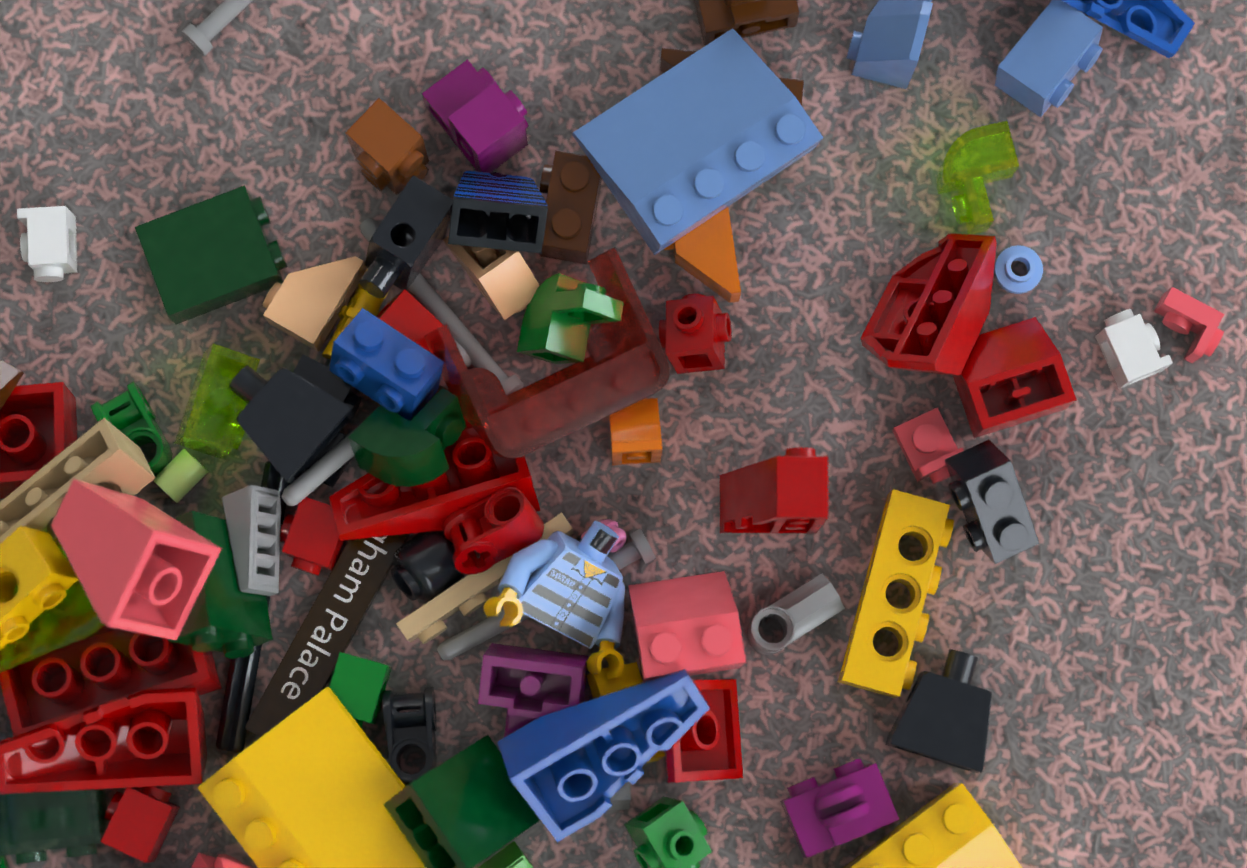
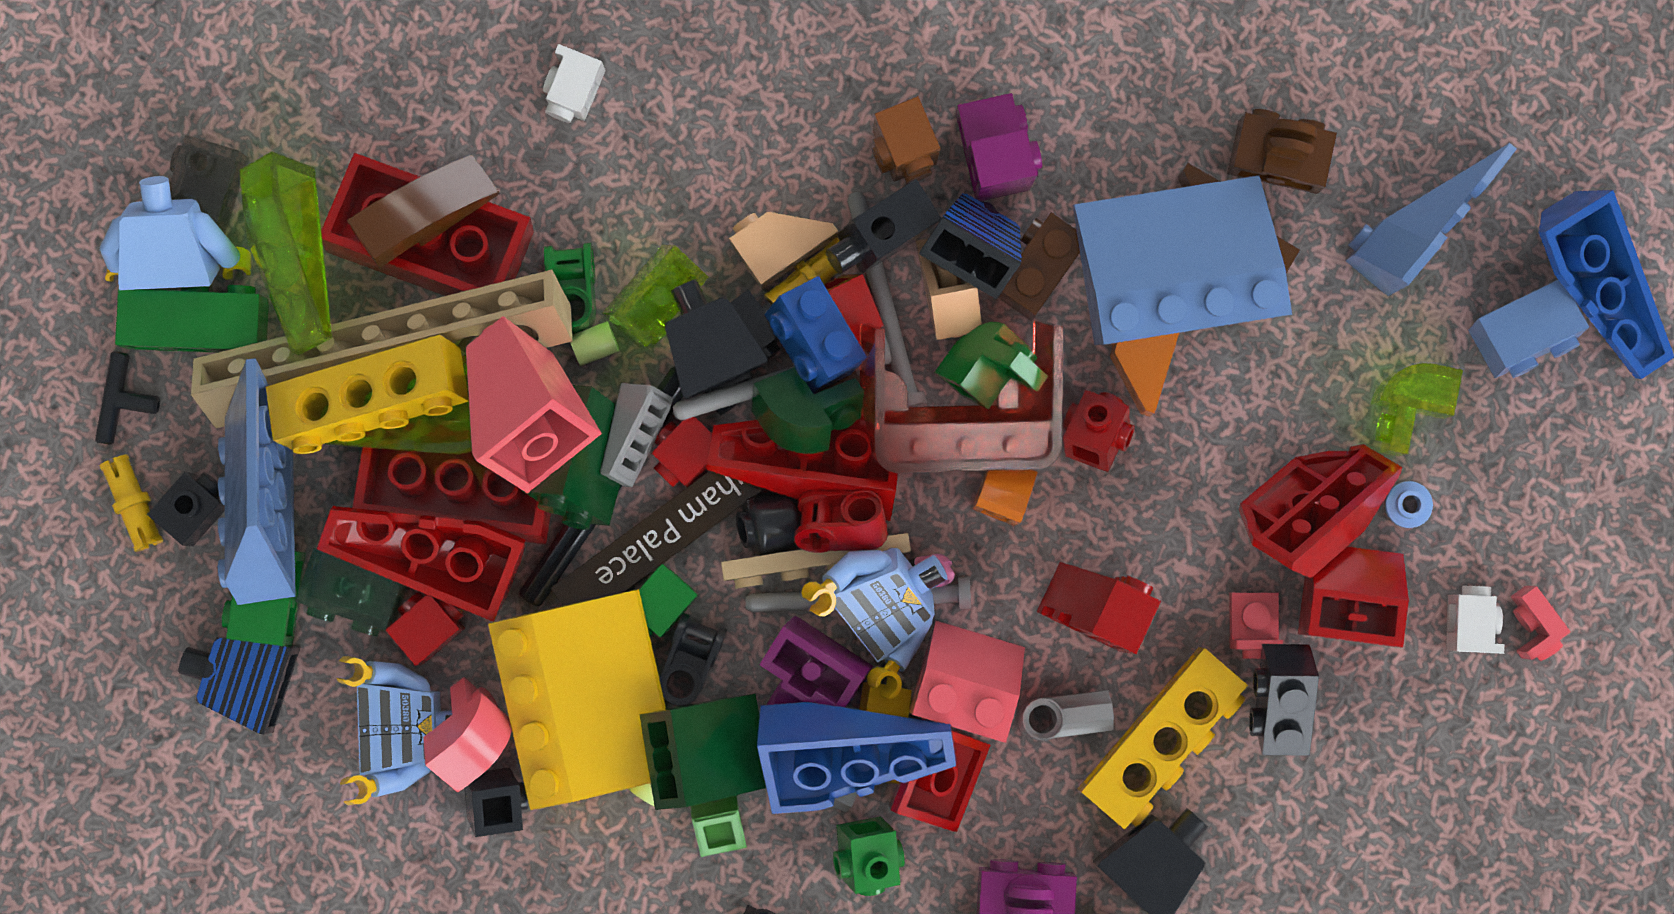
camera: 25 degrees right, 5 degrees up
(211, 254) = (708, 161): dark green brick -> none

